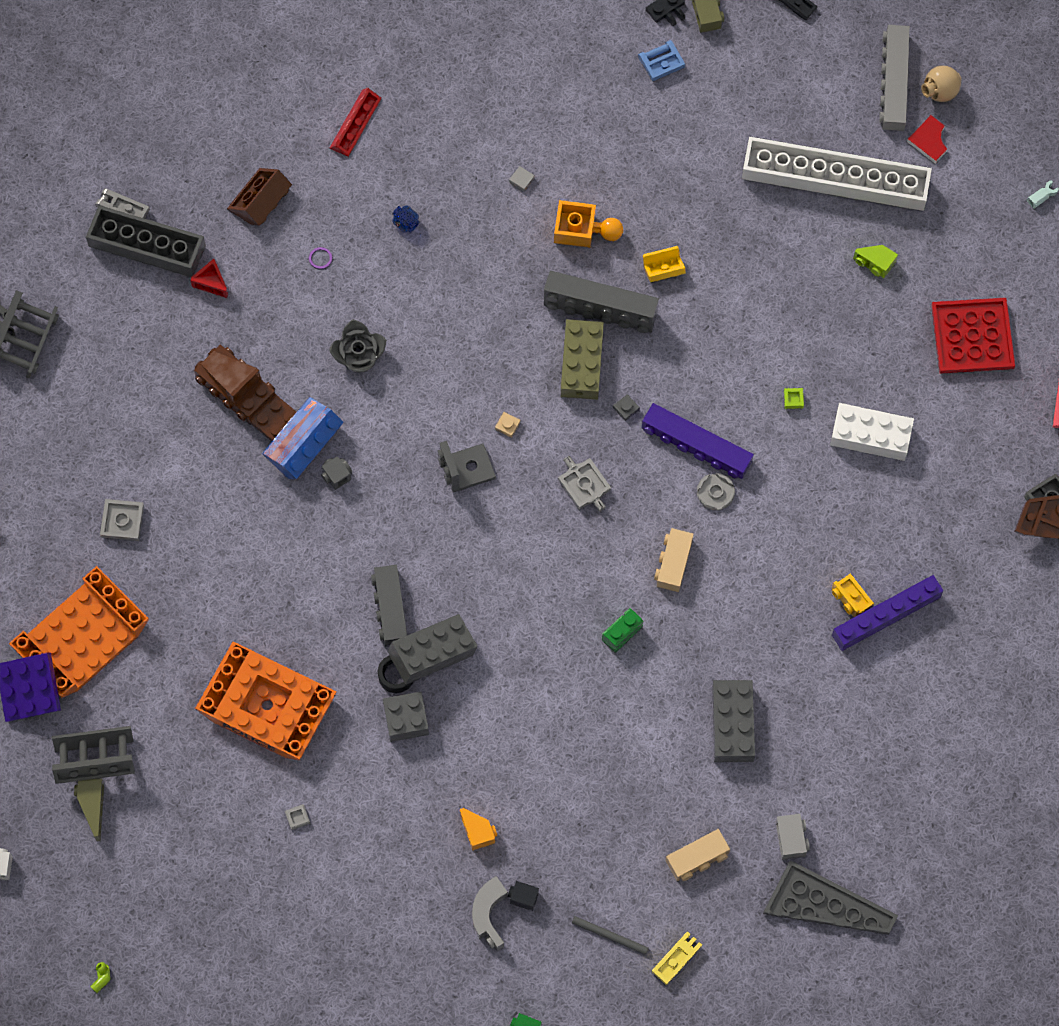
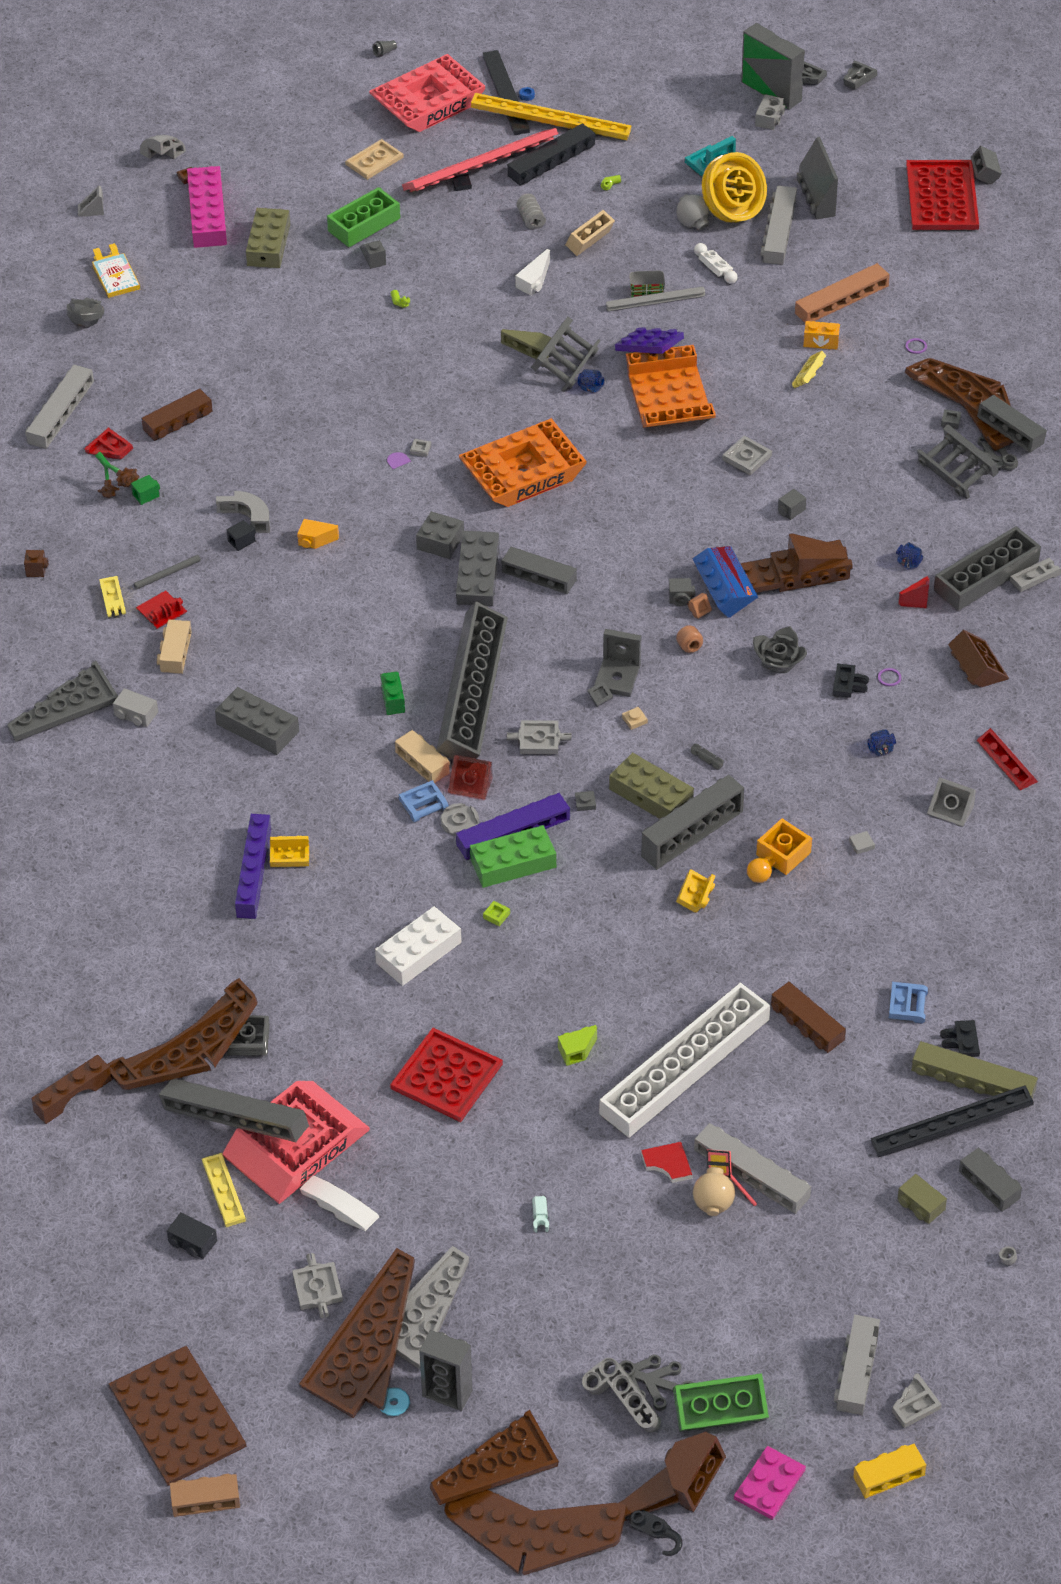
camera: 125 degrees right, 20 degrees down
(109, 715) = (591, 380): none -> clear blue head
(165, 444) = (791, 504): none -> dark grey brick
(167, 313) = (909, 555): none -> clear blue head
(325, 829) = (397, 459): none -> medium lavender piece
(344, 447) = (699, 605): none -> nougat tile
(352, 285) = (848, 680): none -> black hinge
(389, 431) = (689, 639): none -> nougat head
(437, 132) = (952, 802): none -> light grey slope
(502, 464) = (600, 694): none -> dark grey plate
(511, 343) = (707, 756): none -> dark grey axle
(571, 565) = (472, 682): none -> dark grey brick
(659, 905) = (161, 609): none -> red hinge
(670, 506) = (470, 777): none -> clear red slope
(717, 535) = (421, 796): none -> medium blue plate
(729, 117) = (808, 1017): none -> reddish brown brick
(729, 418) = (513, 856): none -> bright green brick
(911, 93) = (722, 1160): none -> piece

